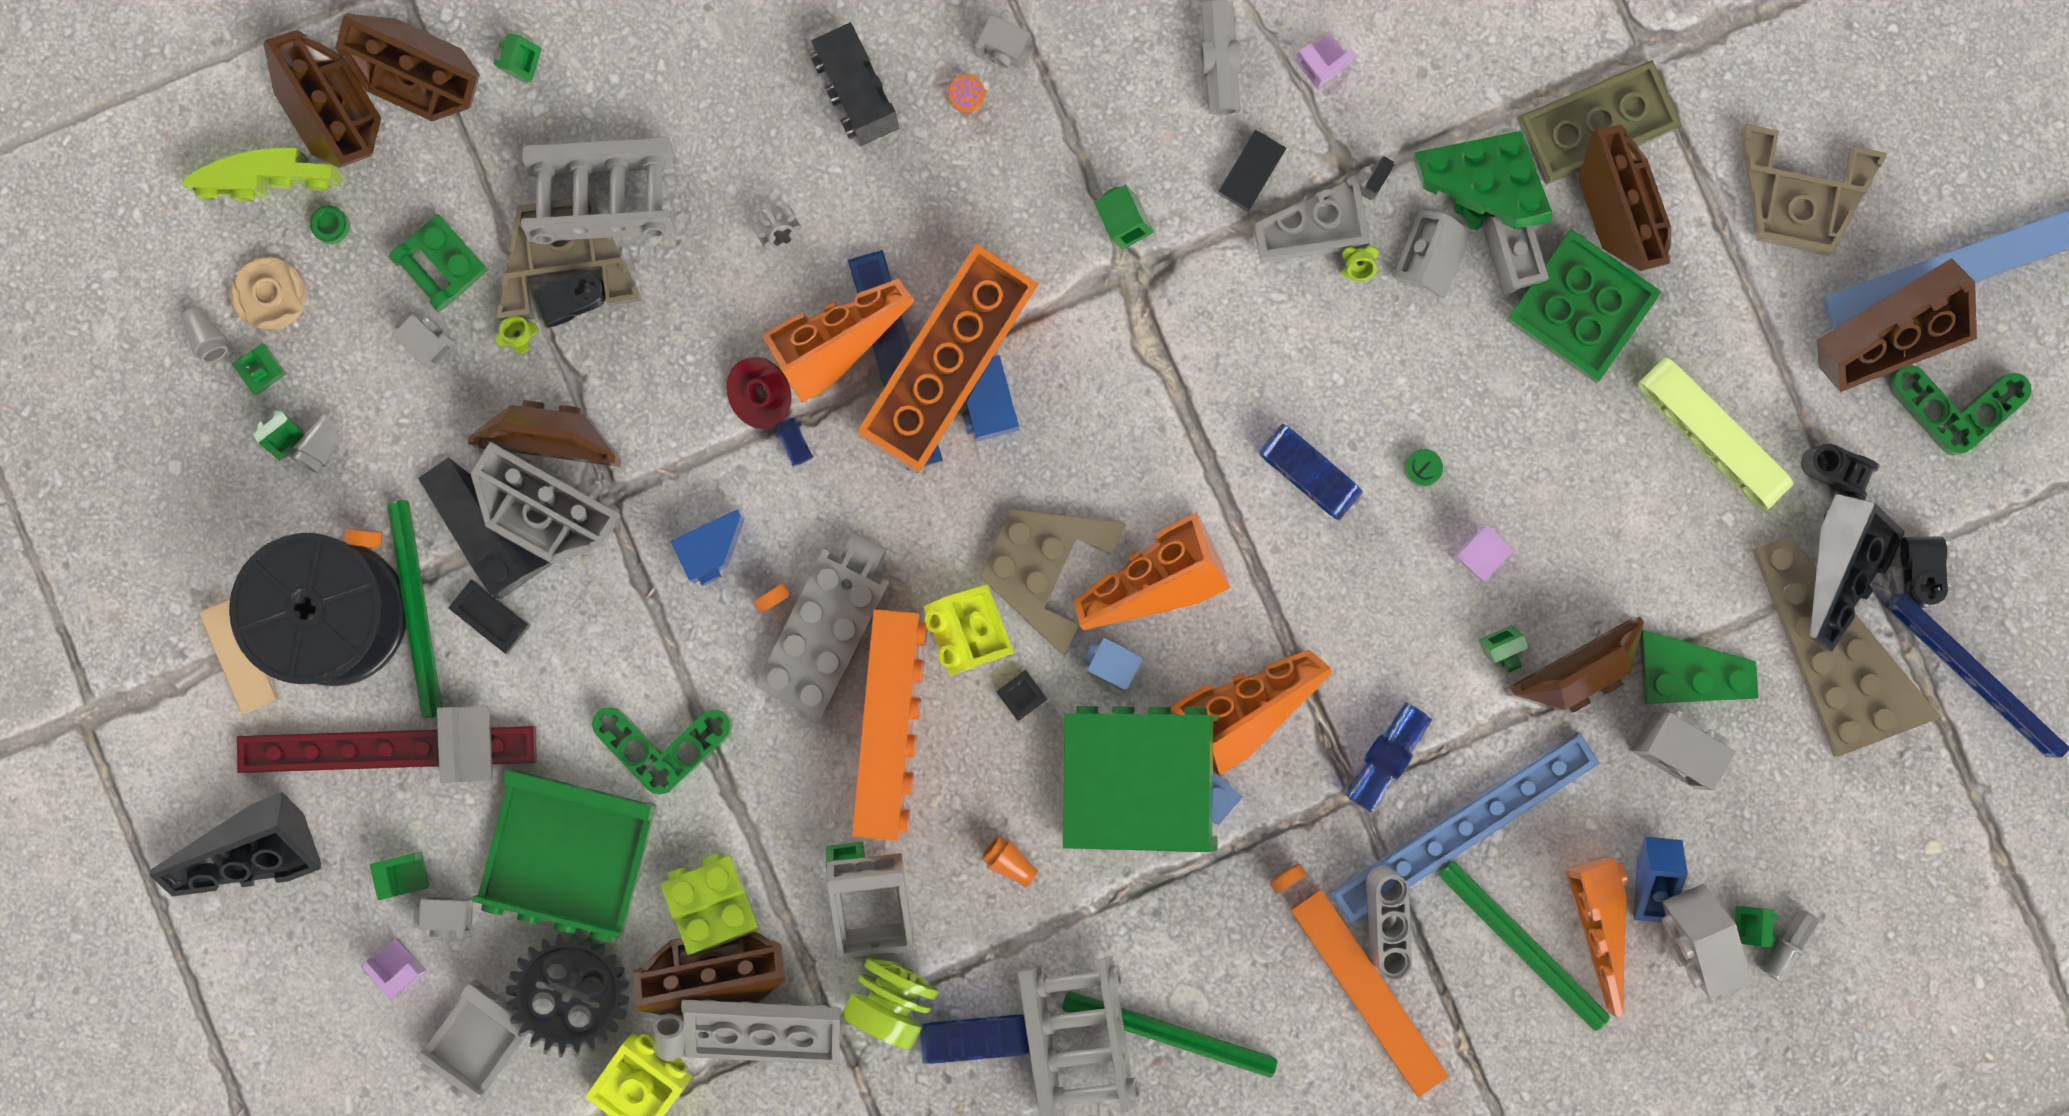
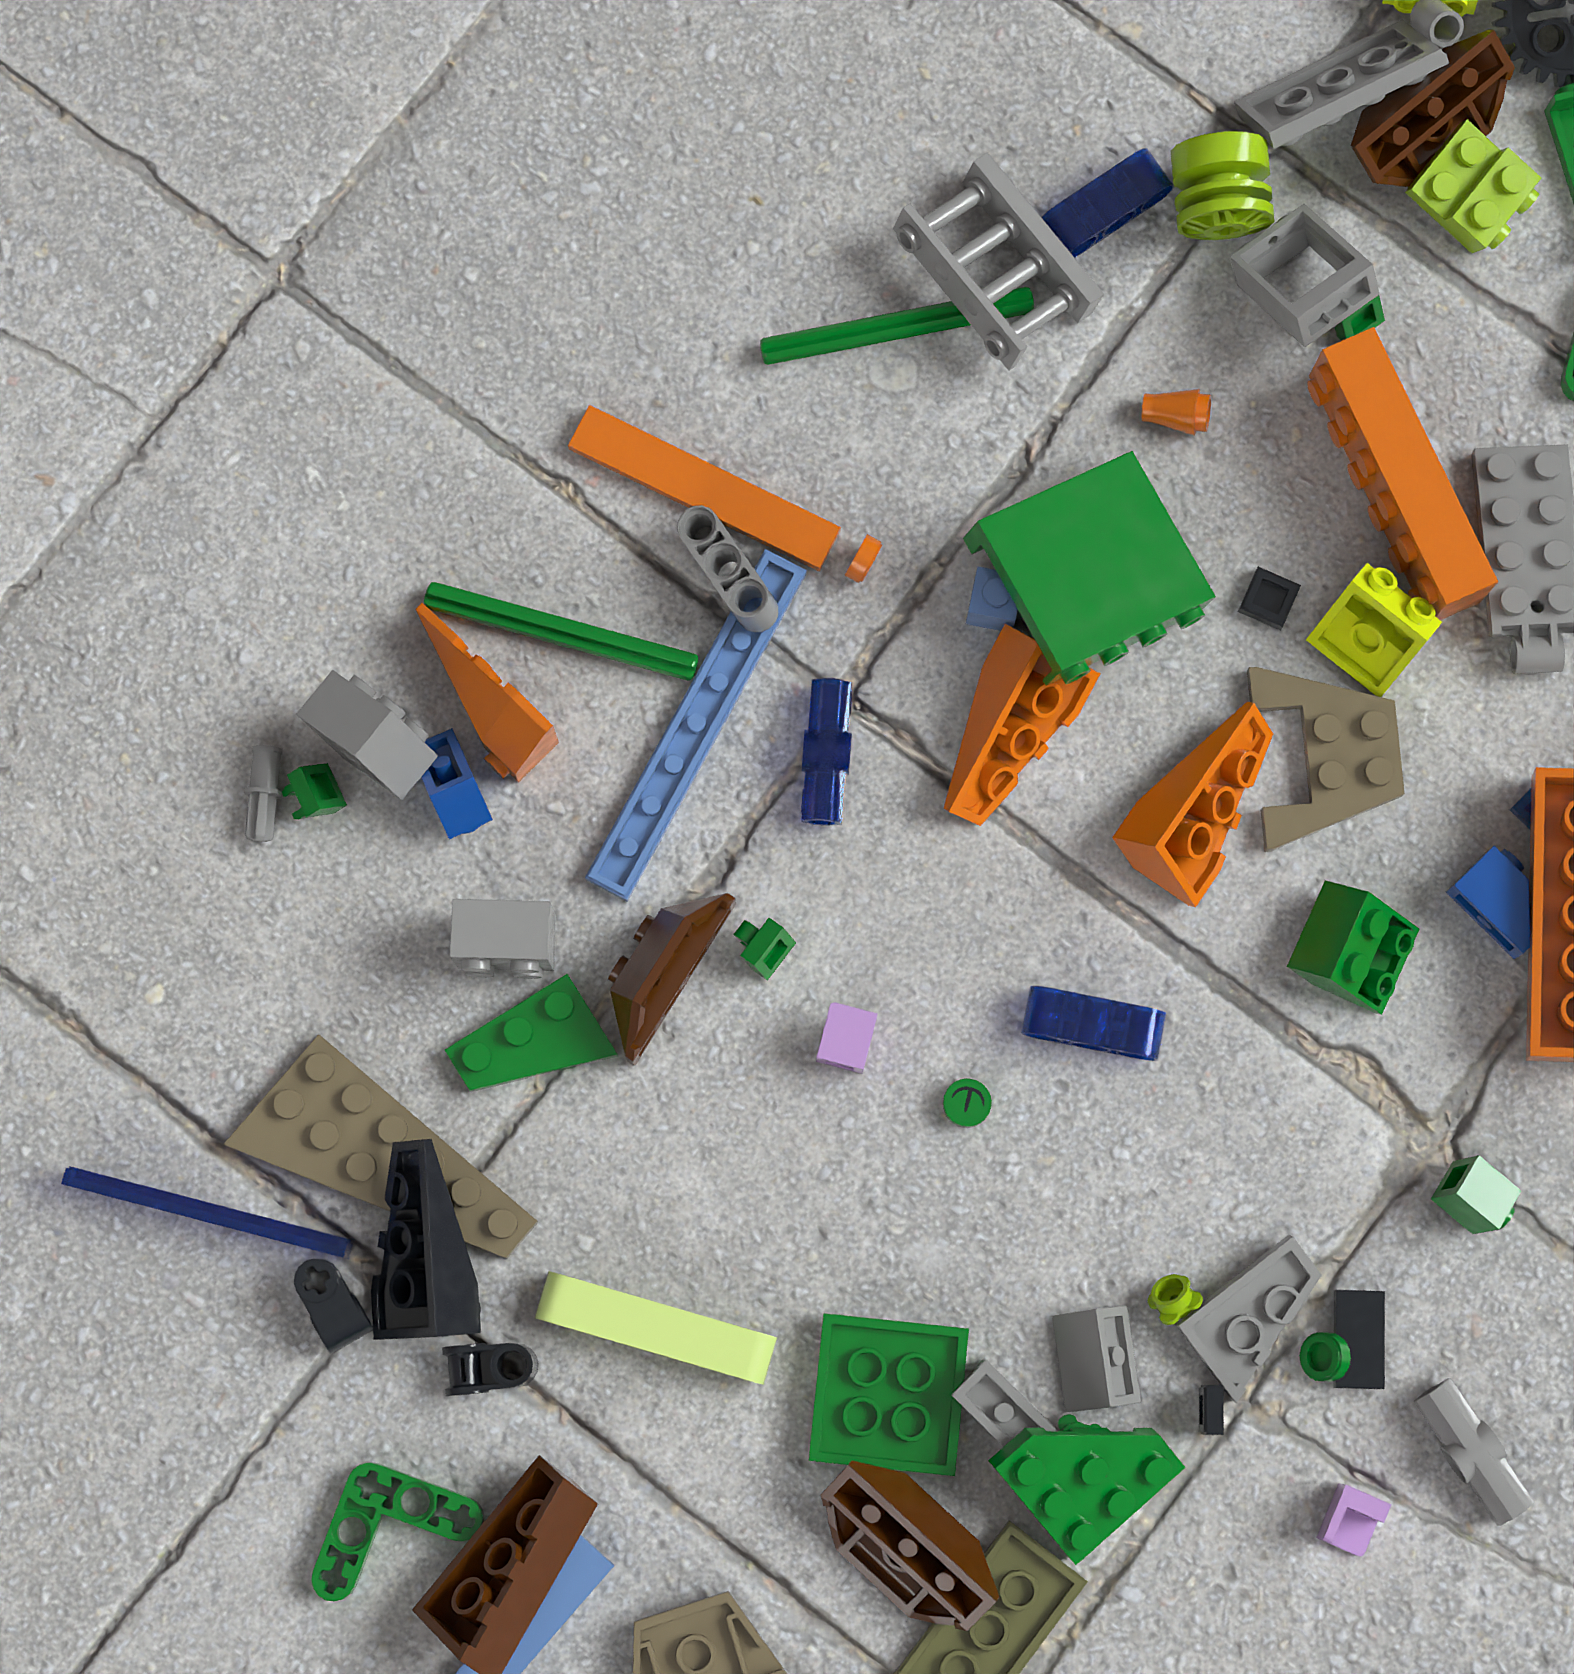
camera: 150 degrees right, 5 degrees down
(1107, 425) = (1353, 946): none -> green slope
(1112, 663) = (1191, 685): medium blue brick -> none
(1282, 171) = (1325, 1356): none -> green tile

